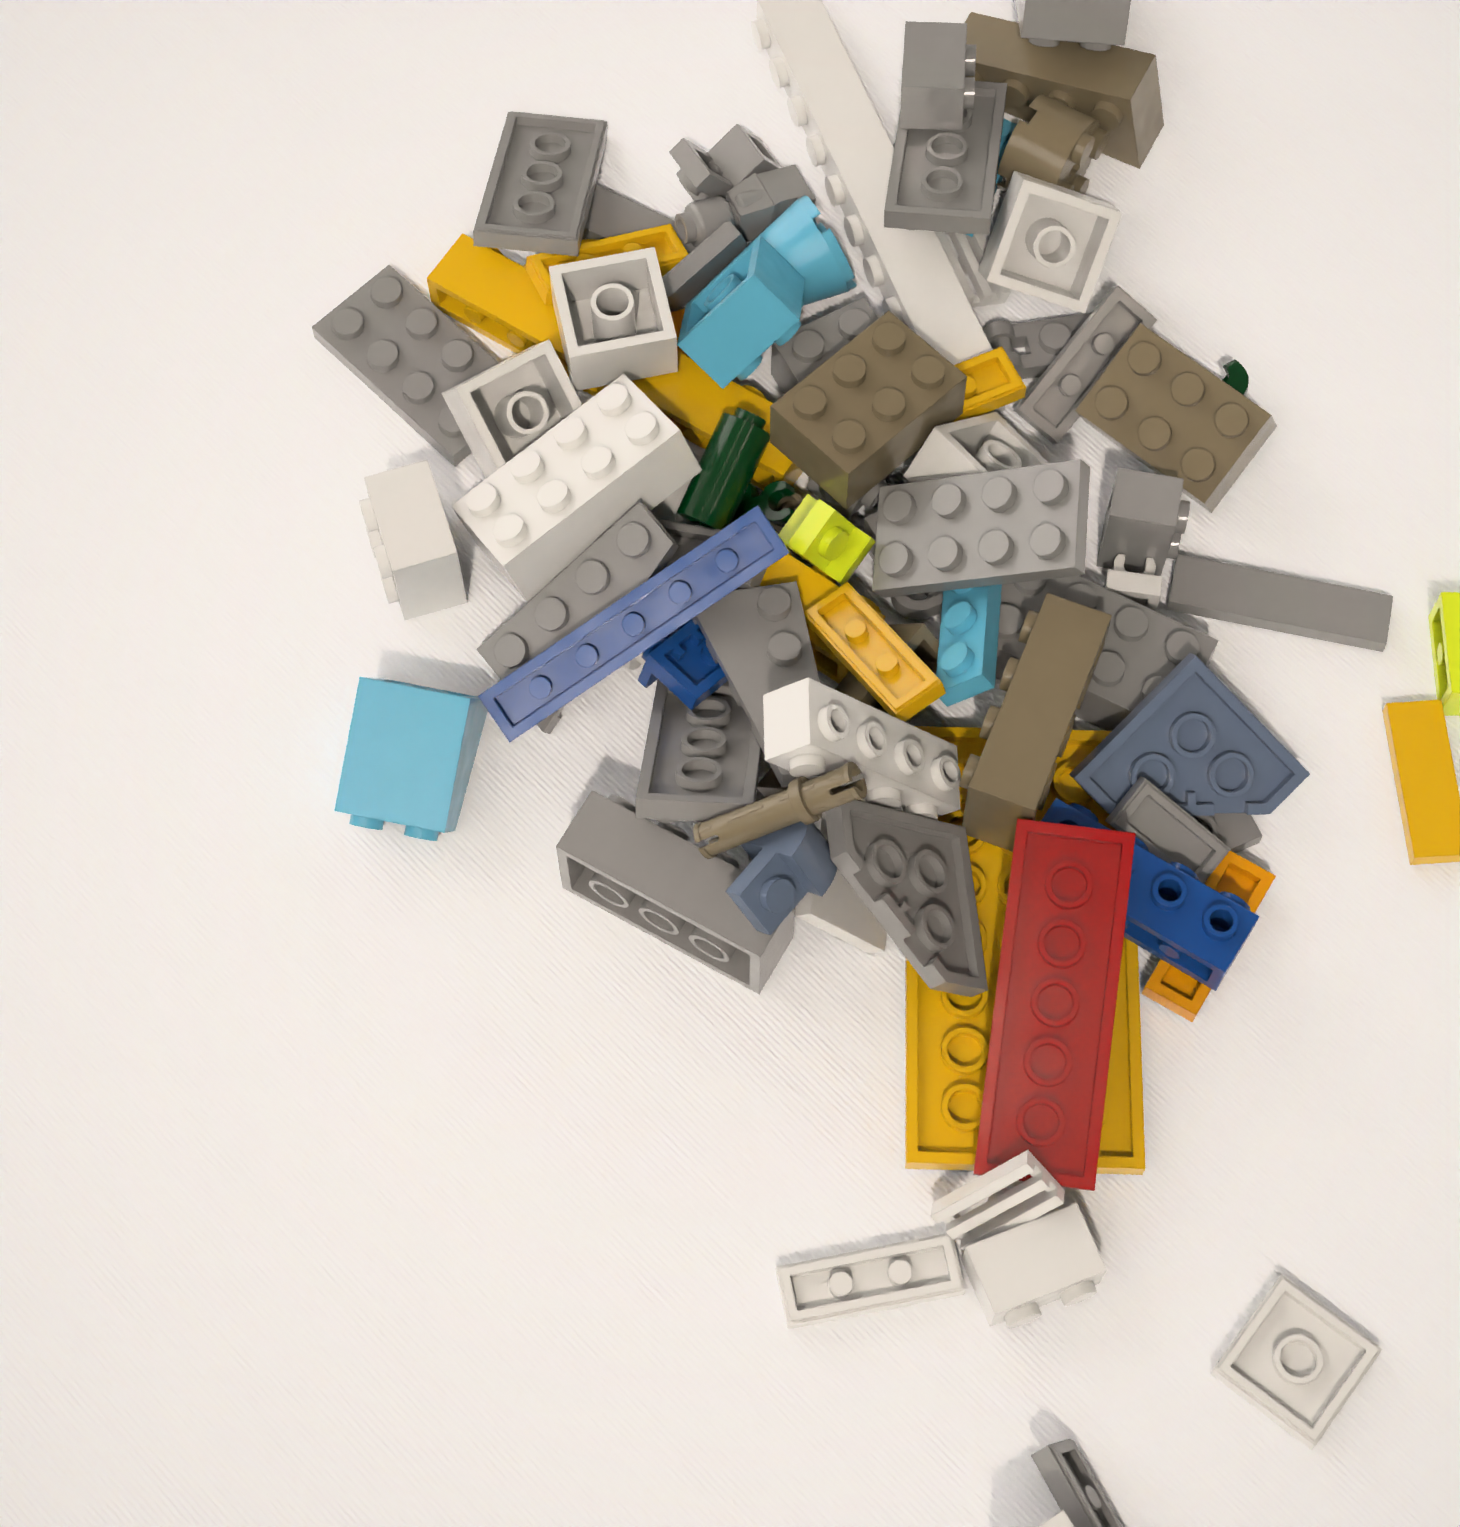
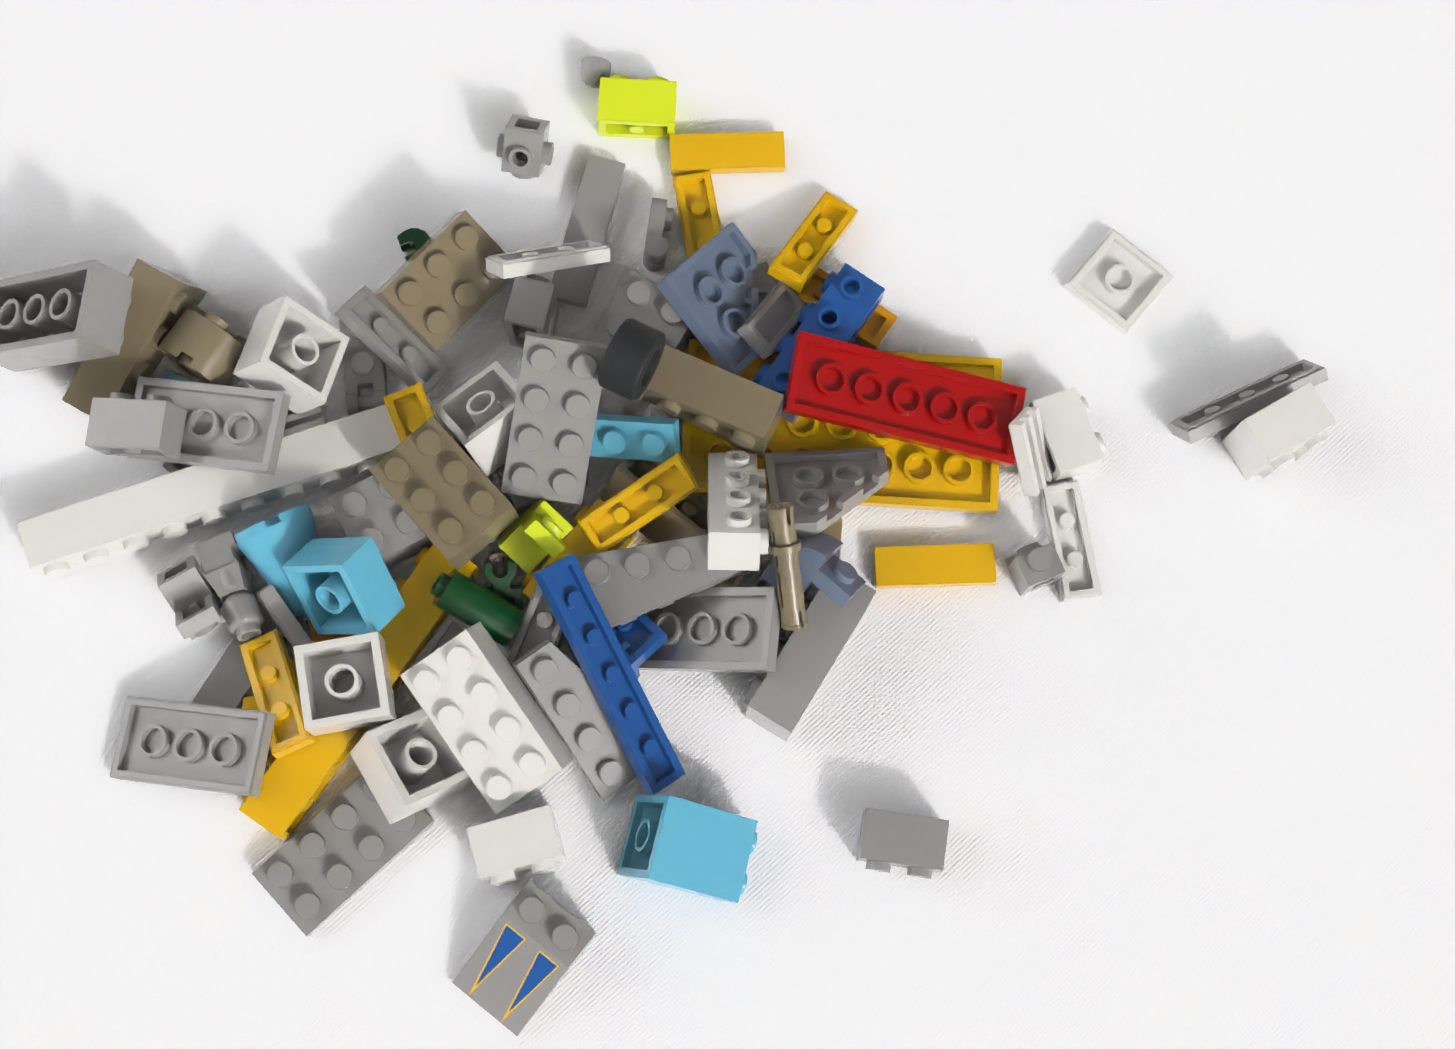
camera: 95 degrees left, 10 degrees up
(282, 572) = (524, 958): none -> light grey slope
(417, 1032) = (903, 842): none -> light grey brick
(821, 1081) = (934, 565): none -> yellow tile
(822, 1217) = (1034, 567): none -> light grey brick
(1059, 592) = (631, 359): none -> black tyre
(1139, 587) = (579, 322): white tile -> none
(1218, 529) = (547, 259): none -> white tile
(1290, 683) = (656, 245): none -> light grey plate
(1299, 894) = (812, 242): none -> yellow tile
(1337, 743) = (696, 209): none -> yellow tile
(1389, 508) = (525, 147): none -> light grey brick

